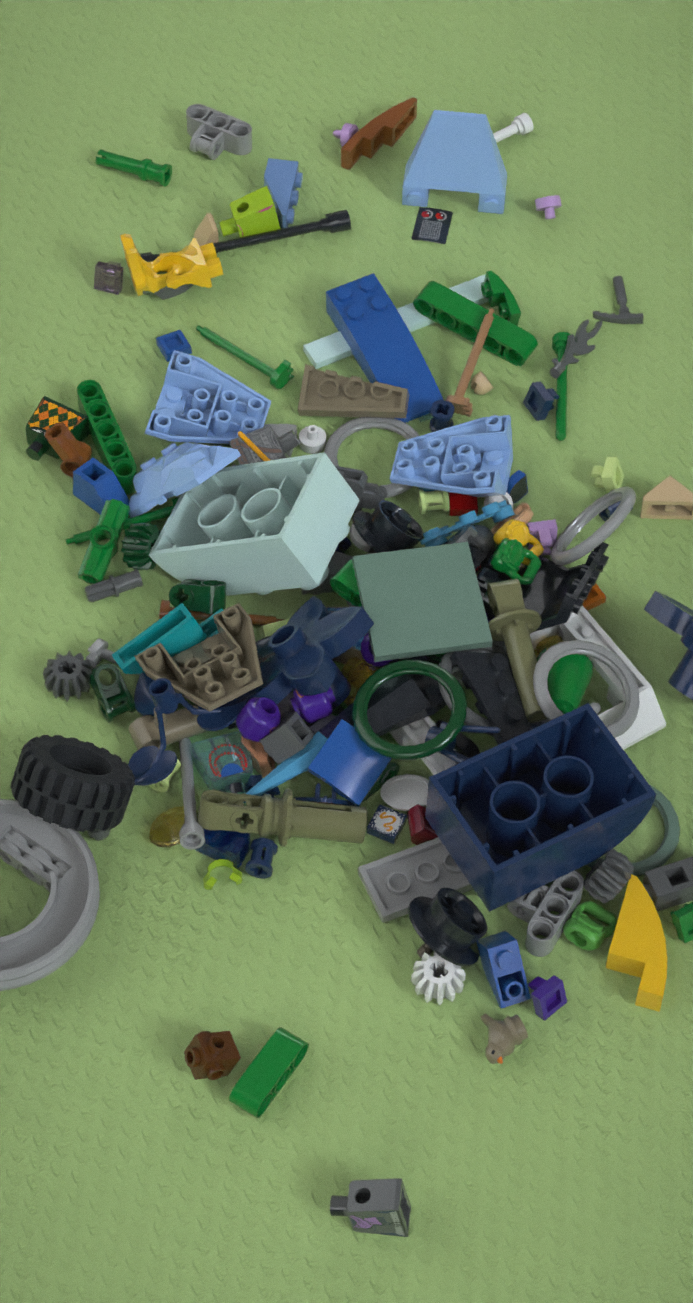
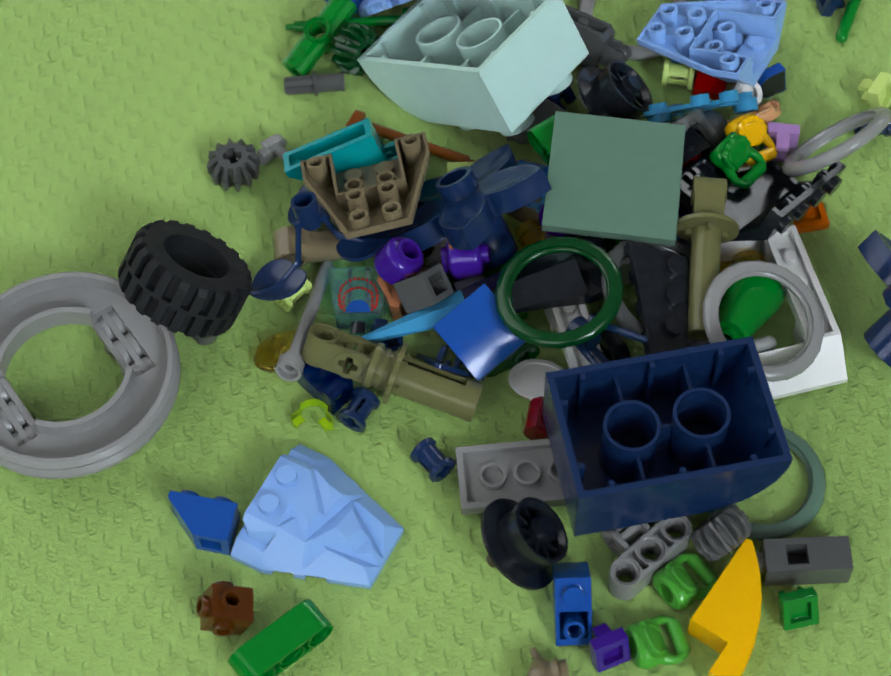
camera: 20 degrees right, 5 degrees up
(111, 694) = (269, 195): dark green piece -> none
(162, 987) = (207, 521): none -> blue slope
(203, 595) = (394, 114): dark green piece -> none
(260, 965) = (315, 524): none -> light blue wedge
(341, 883) = (432, 459): none -> dark blue bush
(386, 824) = (505, 408): tile -> none
(426, 978) = (495, 604): white gear -> none
(579, 986) = (648, 645): none -> bright green piece

